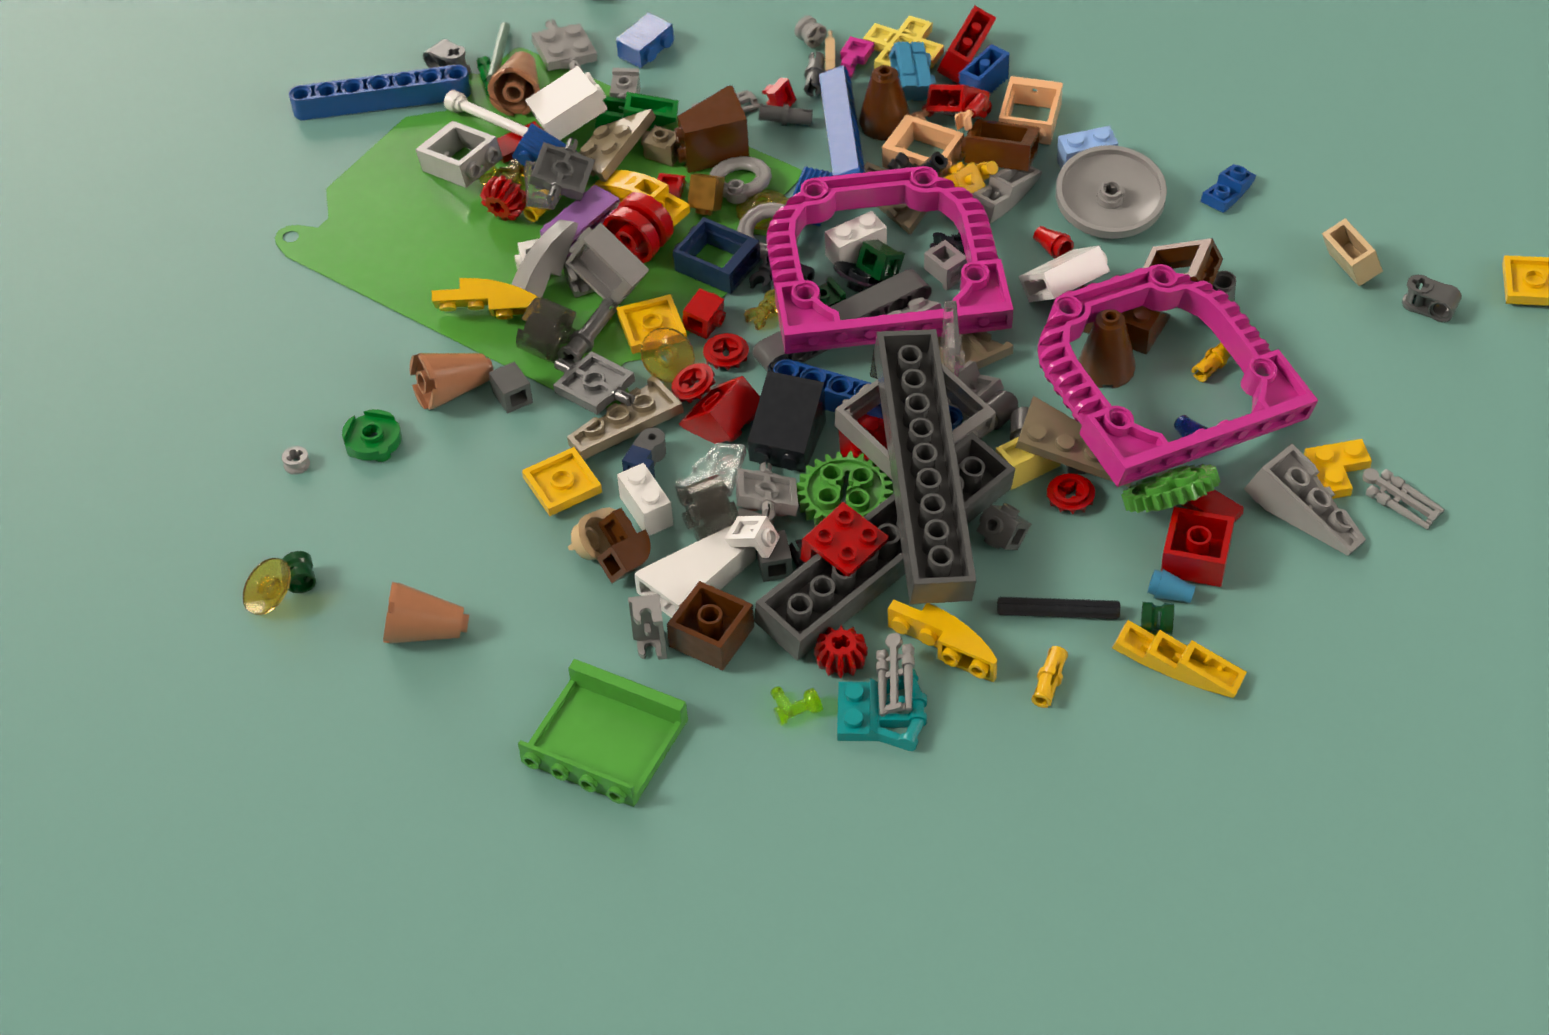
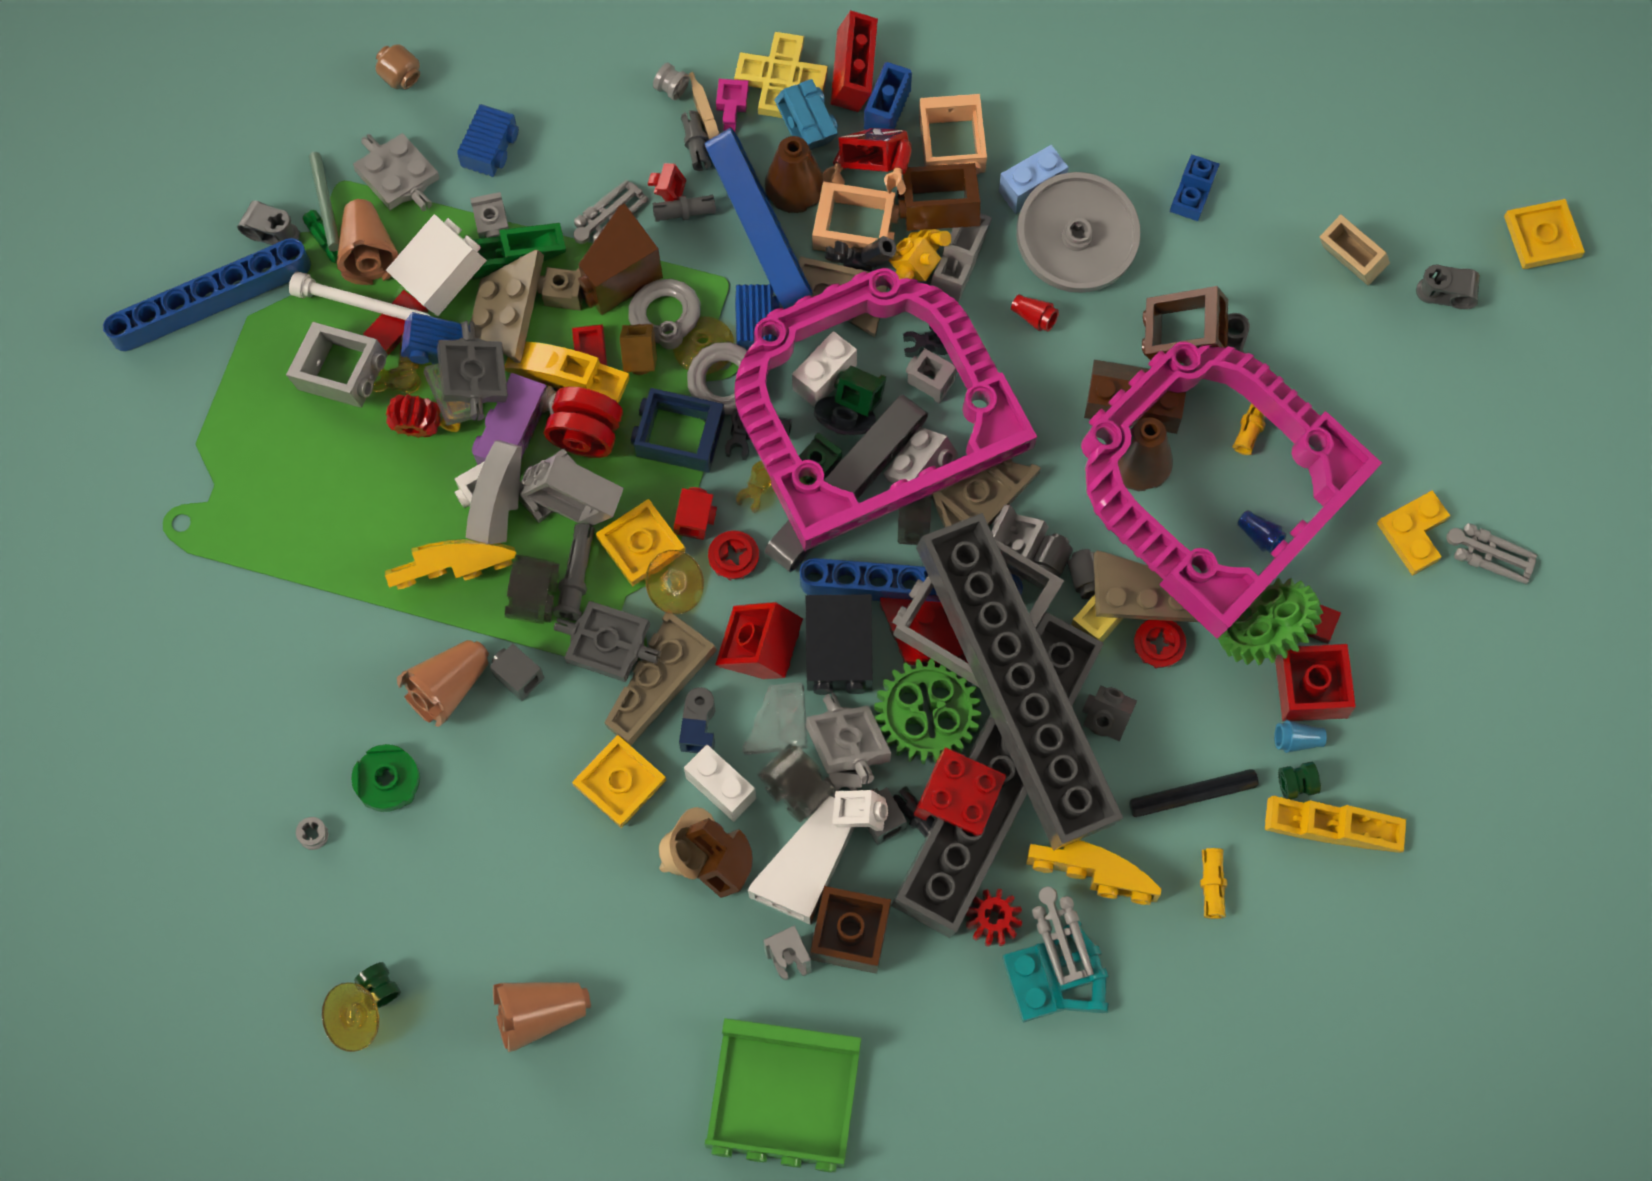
camera: 20 degrees left, 20 degrees up
(688, 377) = (704, 603): red gear -> none
(786, 710) = (963, 1005): clear neon green piece -> none
(951, 340) = (982, 494): clear wing -> none
(1064, 273) = (1067, 362): white brick -> none
(1294, 493) = (1389, 584): light grey wedge -> none

